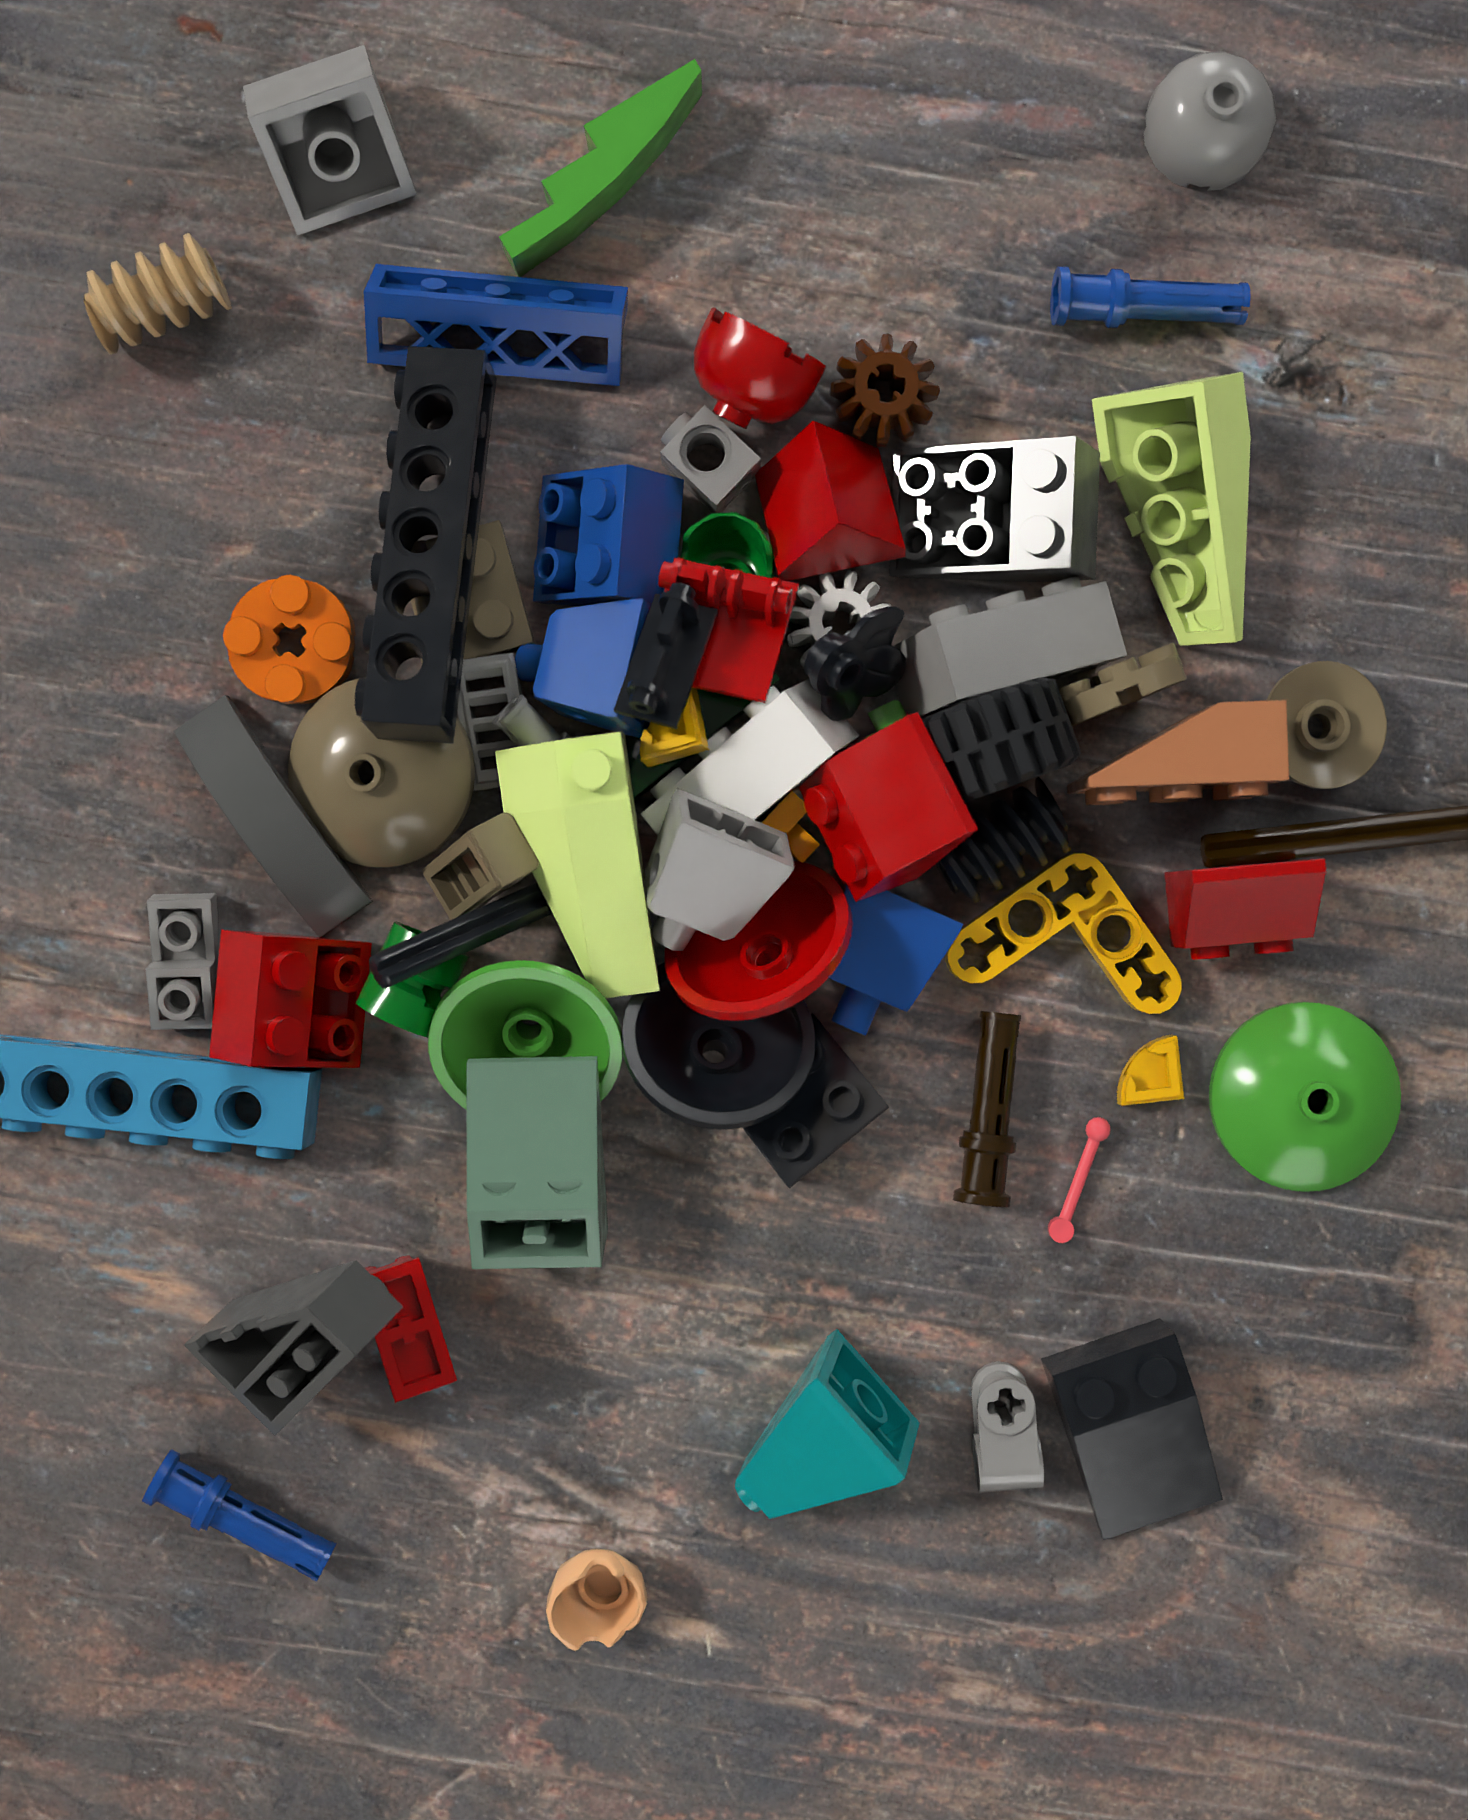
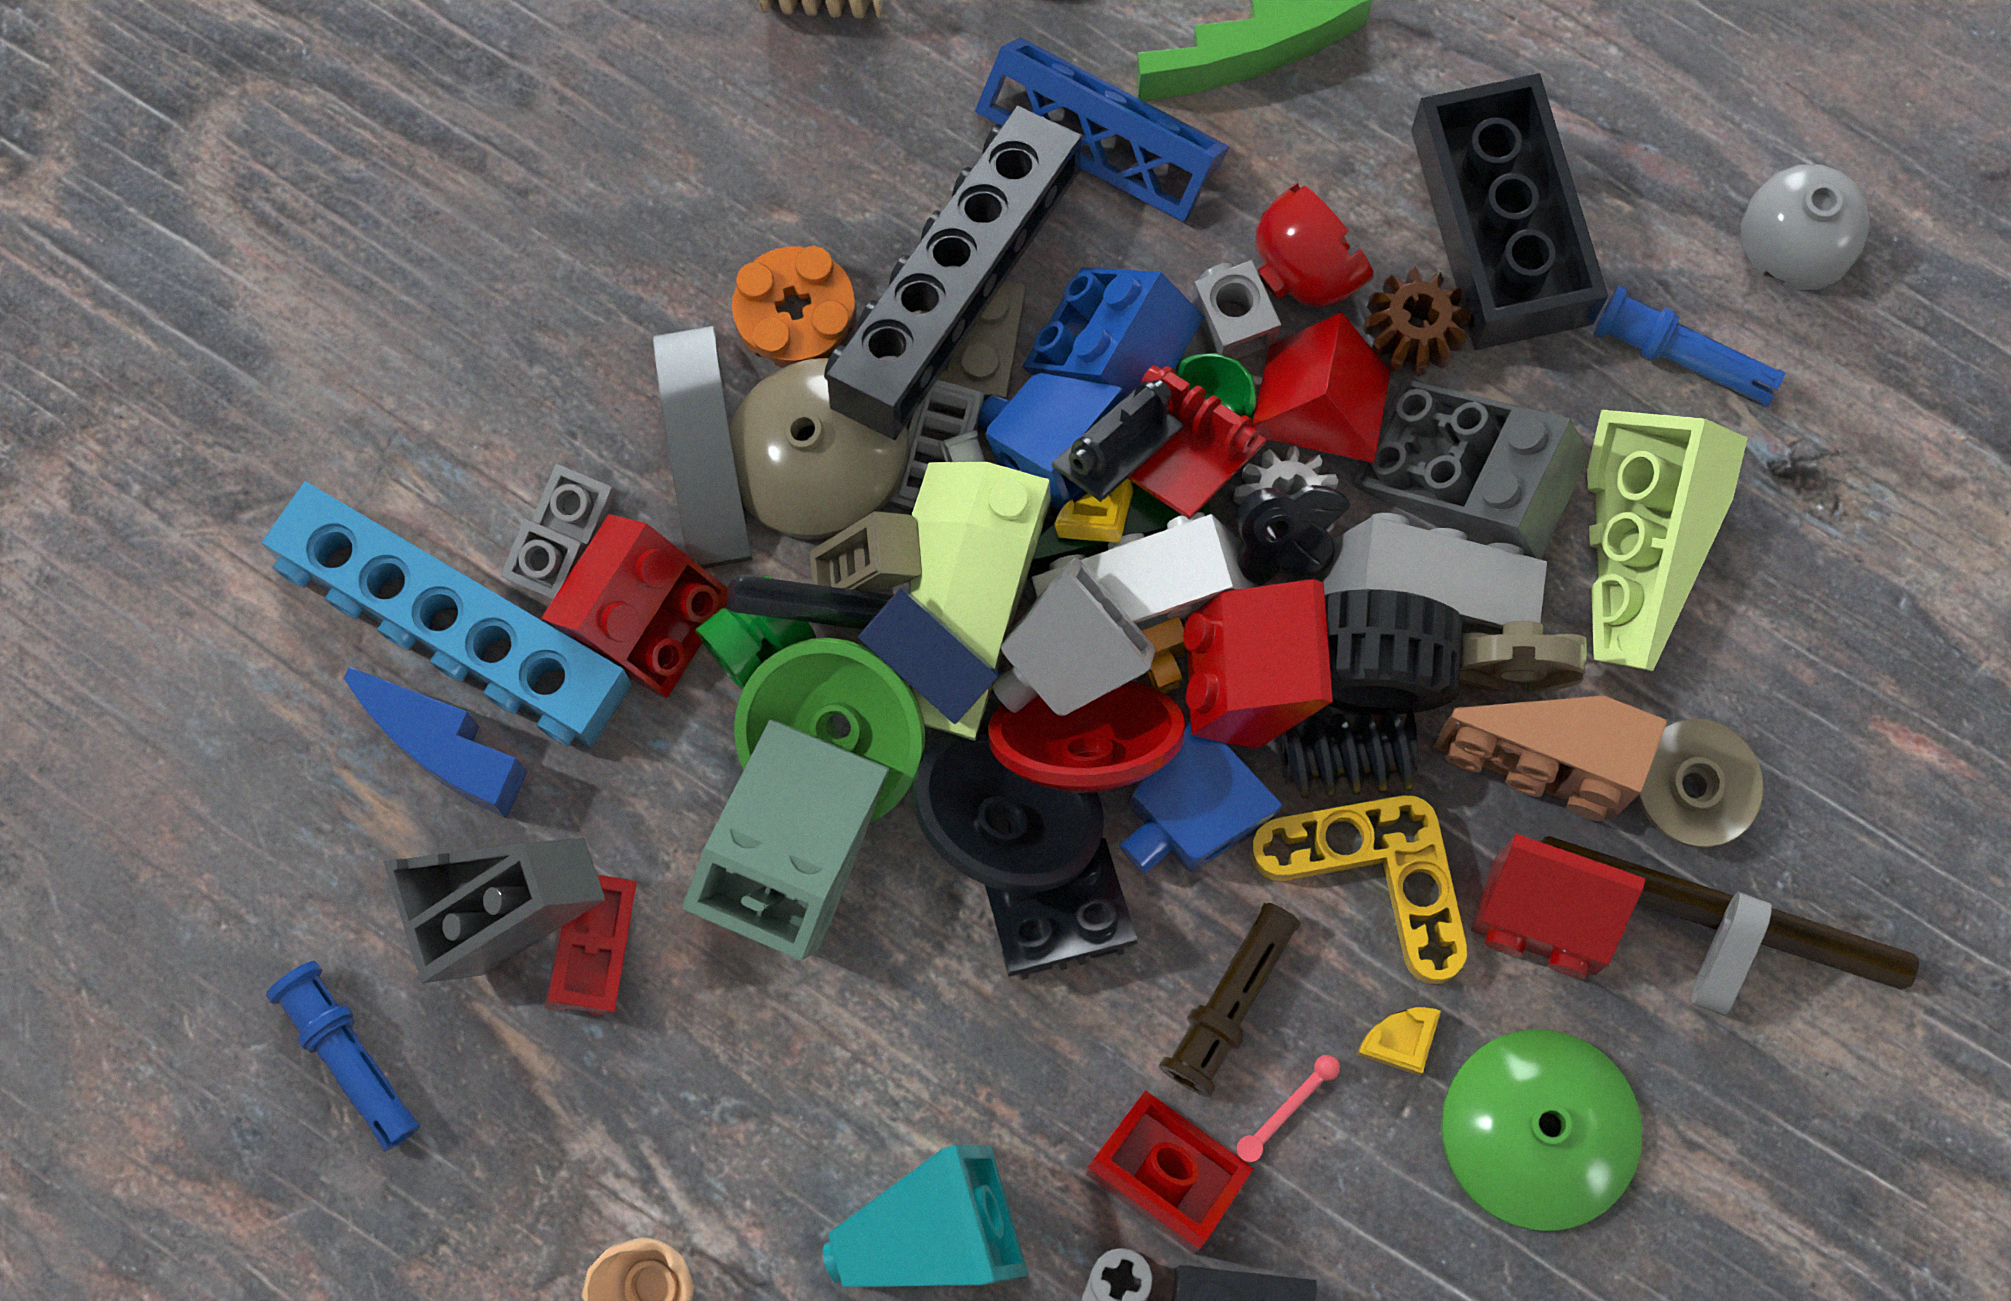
camera: 25 degrees right, 15 degrees down
(174, 1209) = (441, 742): none -> blue slope
(584, 942) = (929, 655): none -> dark blue tile
(924, 237) = (1508, 211): none -> black brick
(1003, 1289) = (1169, 1172): none -> red slope
(1414, 871) = (1731, 953): none -> light grey beam

